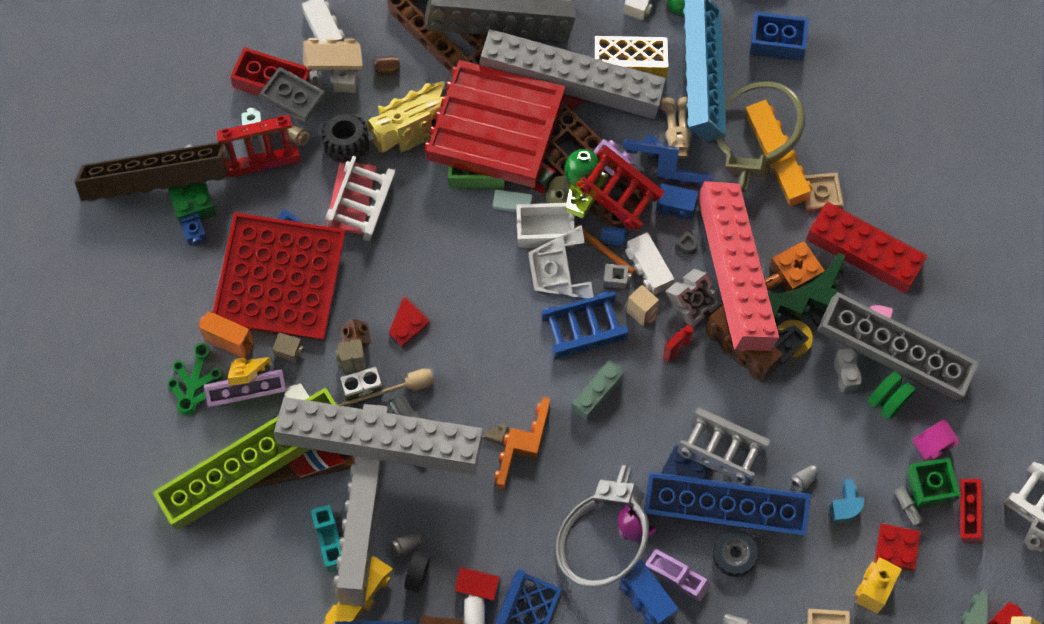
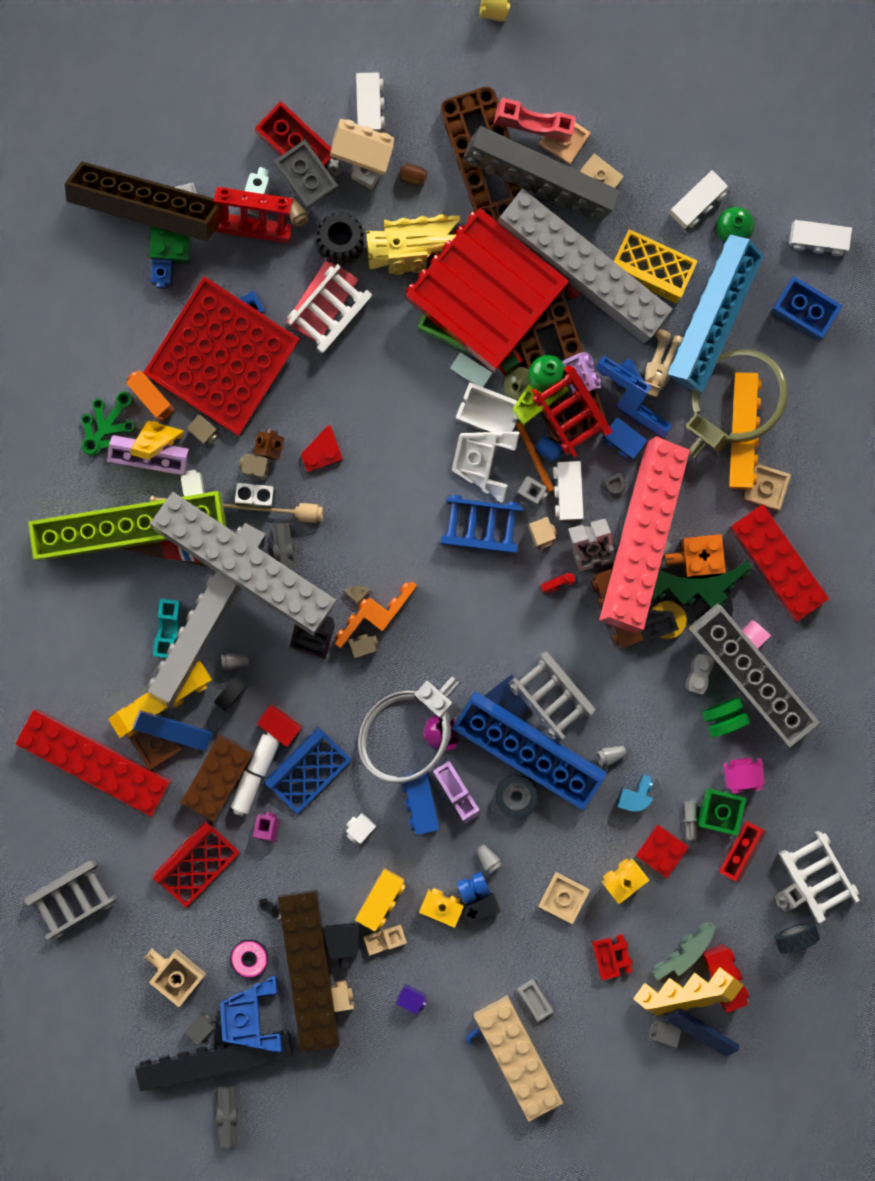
camera: 25 degrees right, 20 degrees up
(473, 489) = (315, 645): none -> black brick
(524, 477) = (364, 645): none -> dark tan brick
(597, 391) = (464, 594): sand green brick -> none

